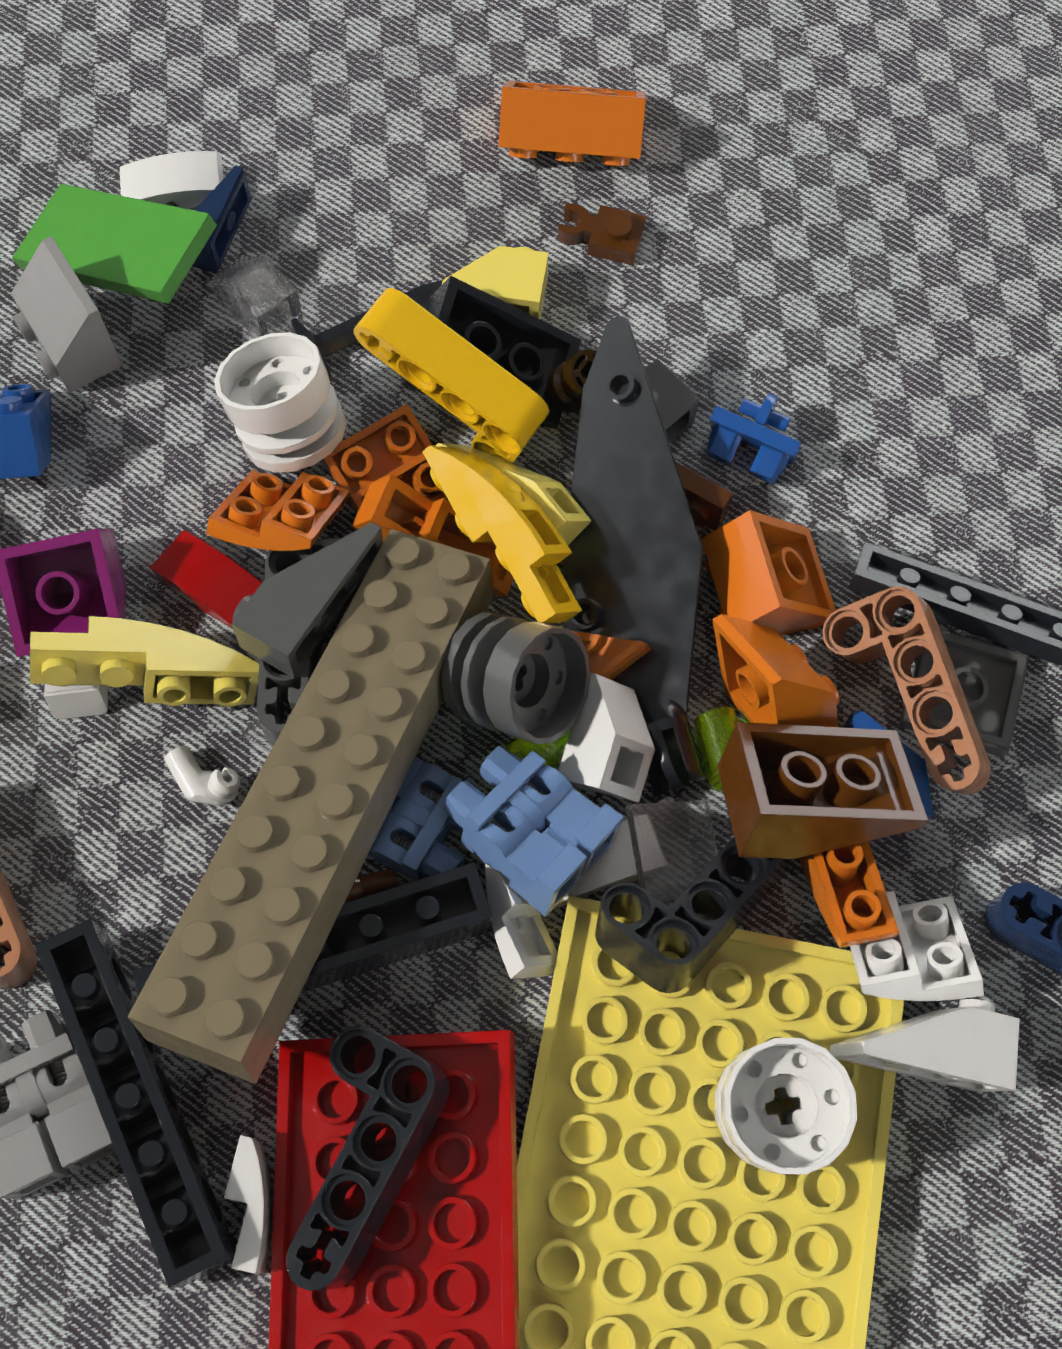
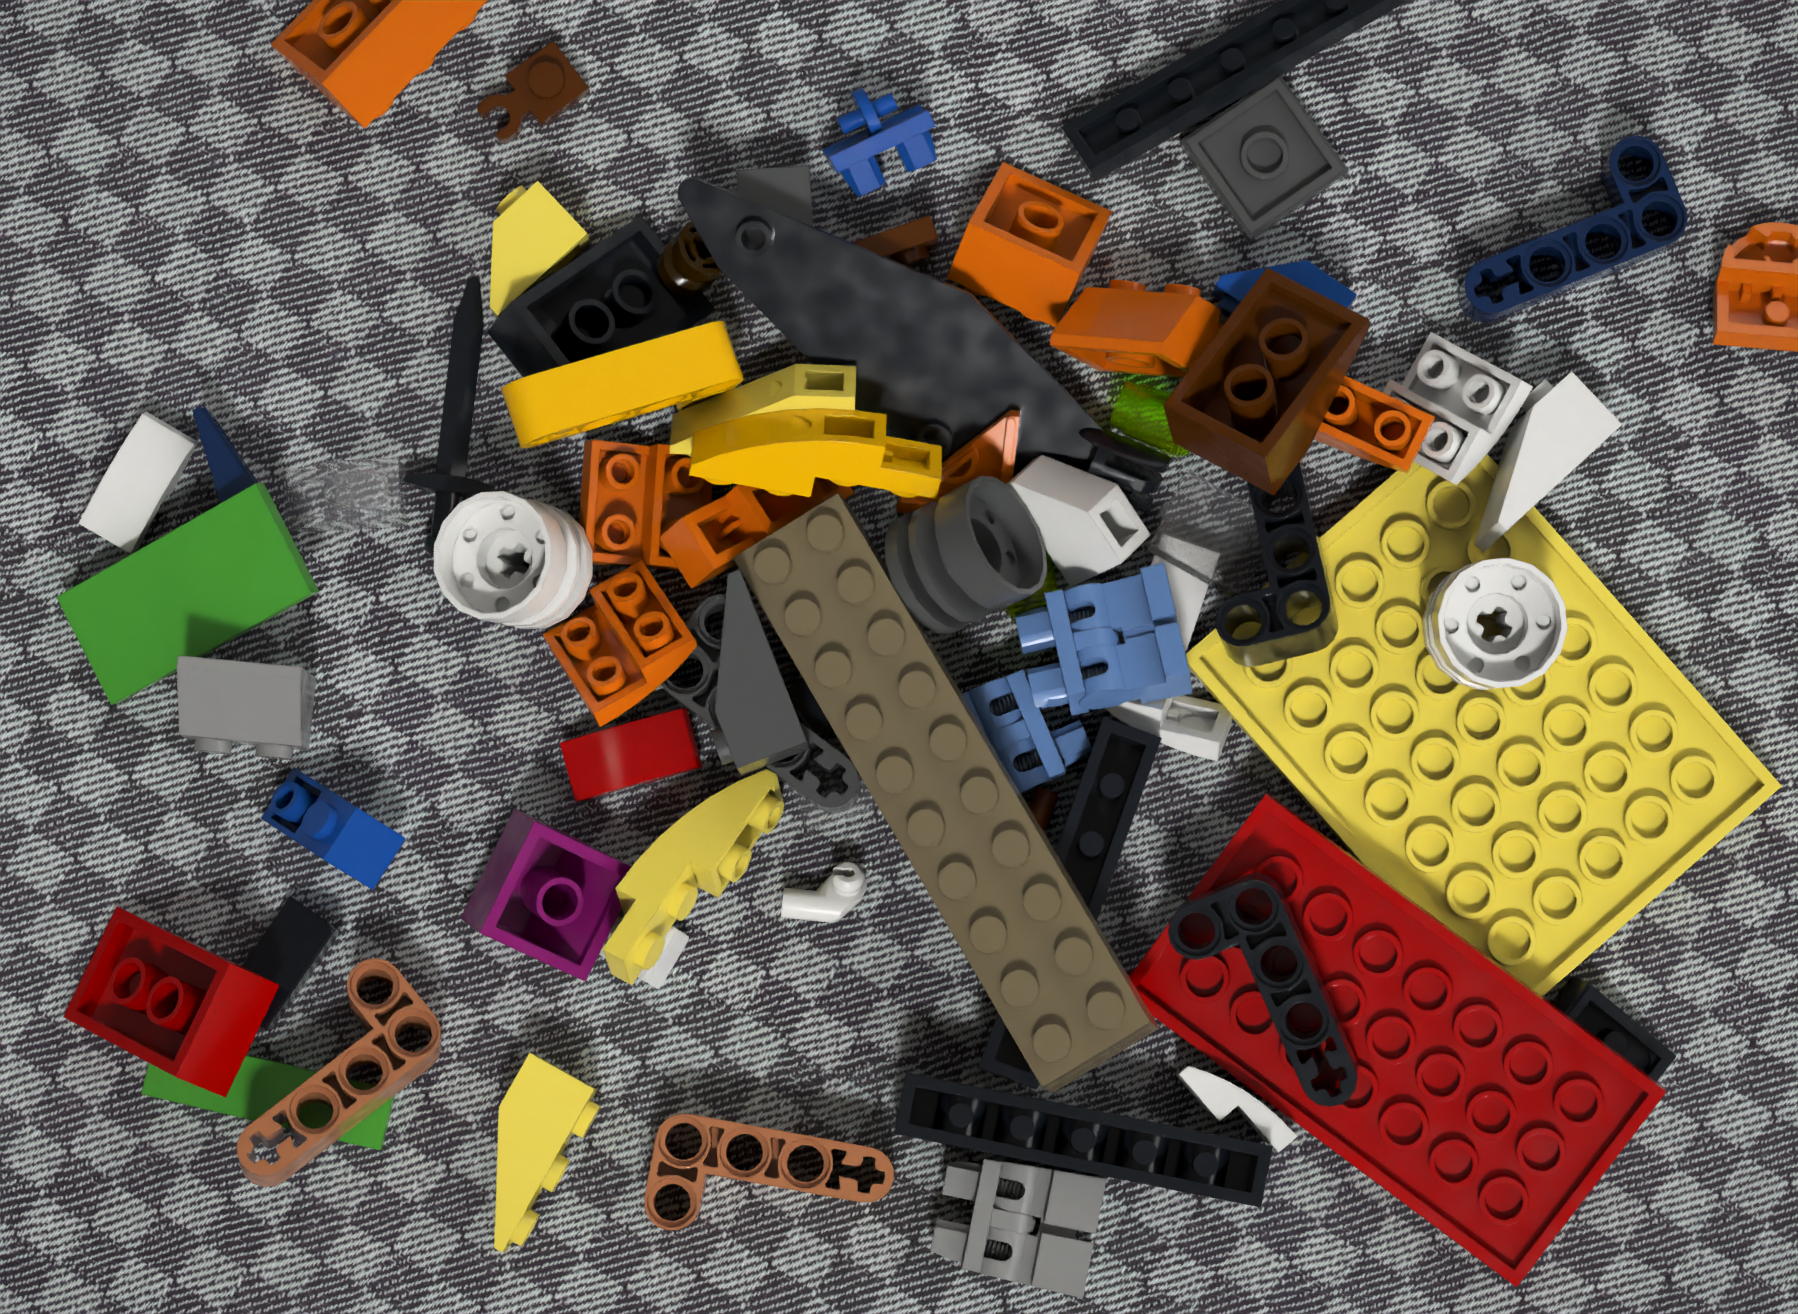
camera: 50 degrees left, 15 degrees up
(921, 693) = (1239, 214): nougat beam -> none

